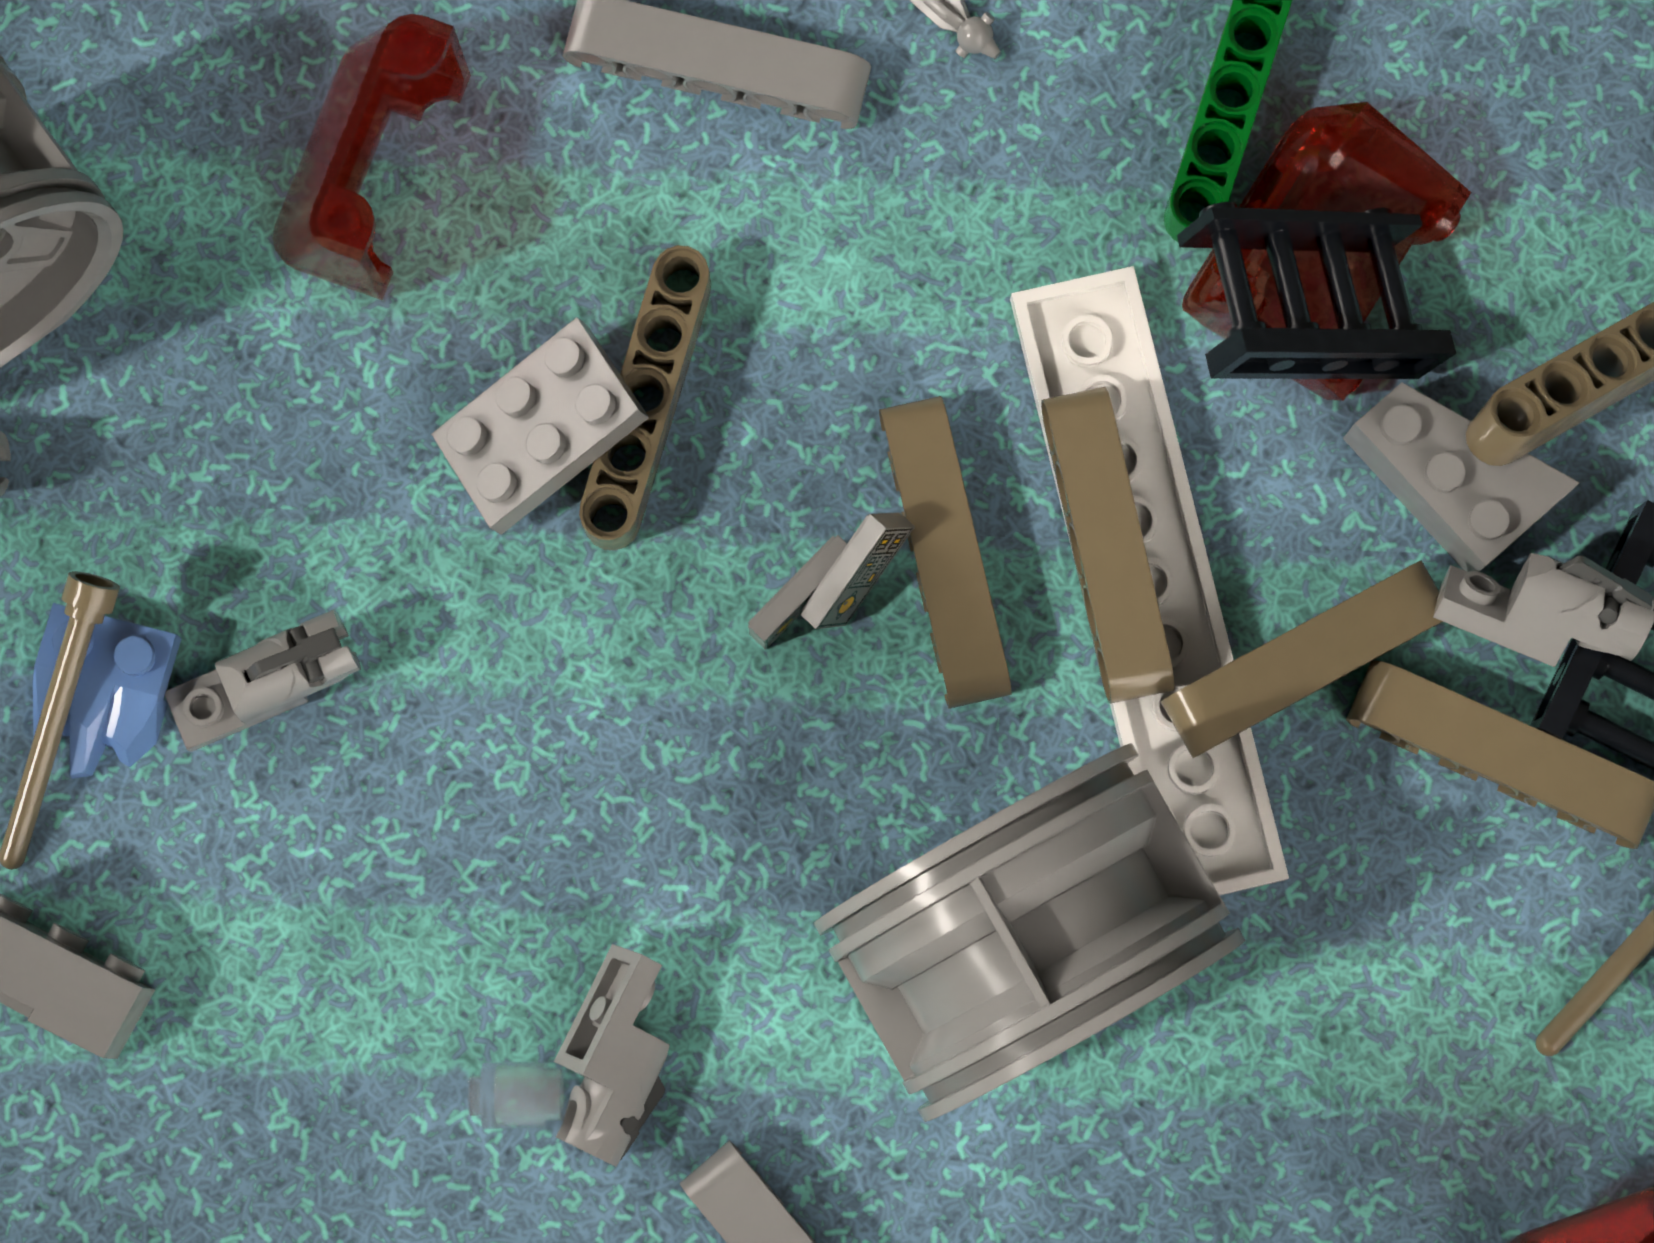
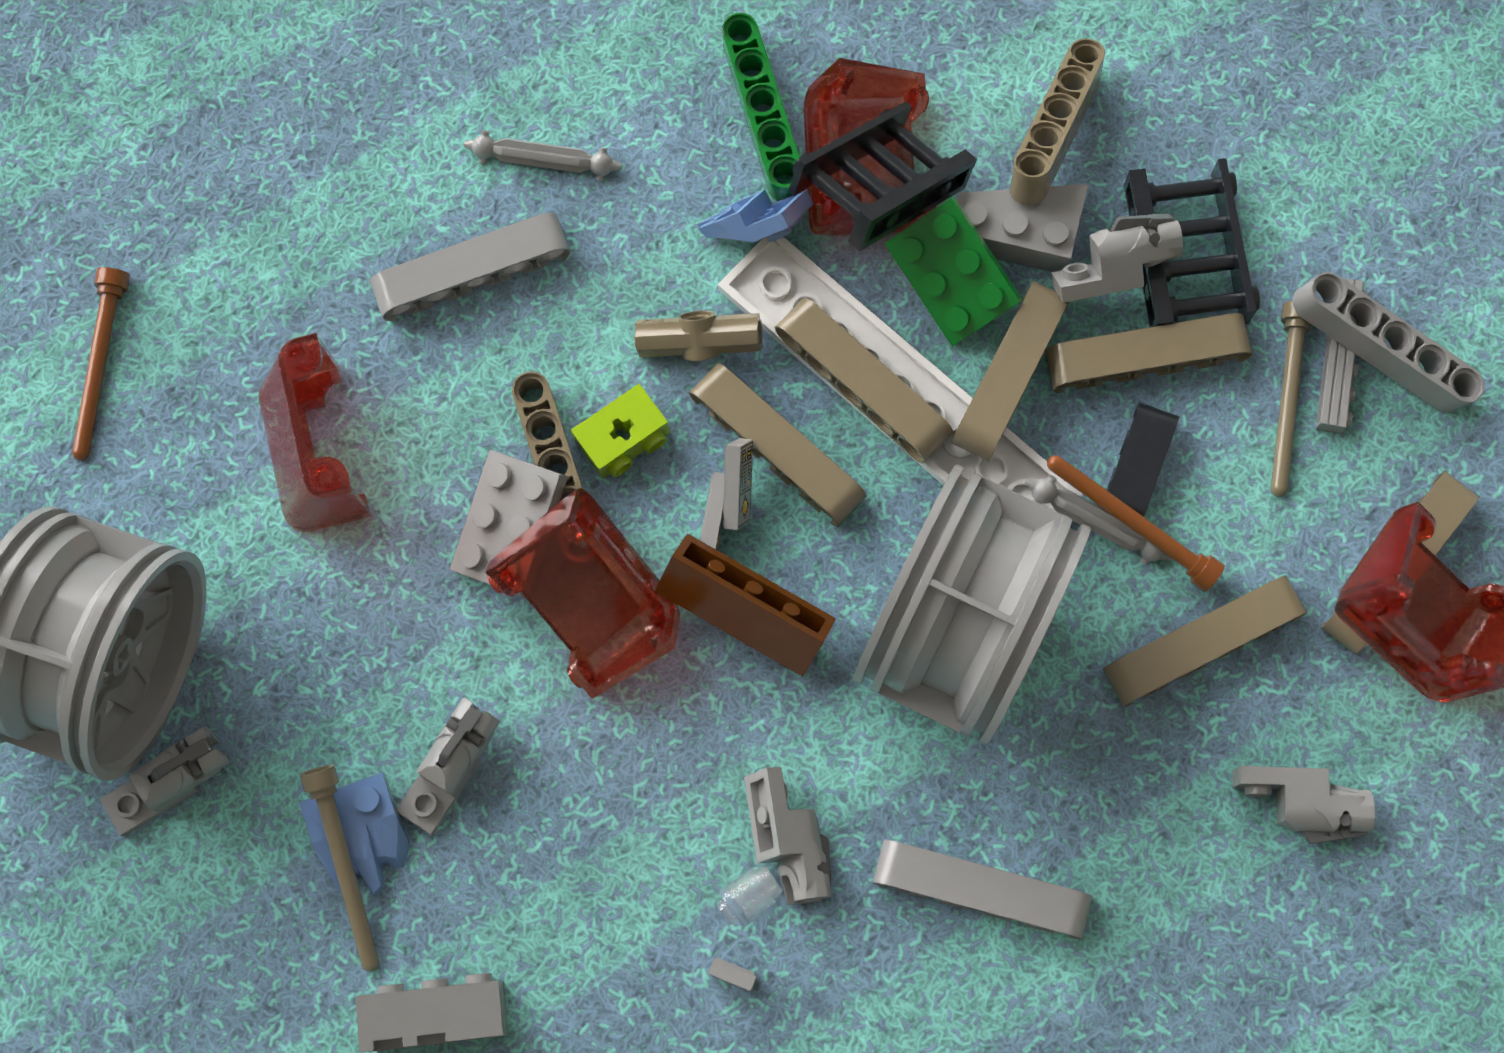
camera: 30 degrees left, 5 degrees down
(427, 1180) = (733, 974): none -> light grey tile
(578, 583) = (589, 592): none -> clear red windscreen
(728, 389) = (632, 413): none -> lime brick
(759, 730) = (744, 604): none -> reddish brown brick
(942, 344) = (699, 335): none -> dark tan piece
(1119, 240) = (757, 218): none -> medium blue plate
(1282, 926) = (1092, 515): none -> light grey wheel
(1310, 1172) = (1204, 640): none -> dark tan beam
(1323, 480) = (953, 271): none -> green plate
(1370, 1080) = (1202, 569): none -> dark orange piece
(1388, 890) = (1142, 456): none -> black beam

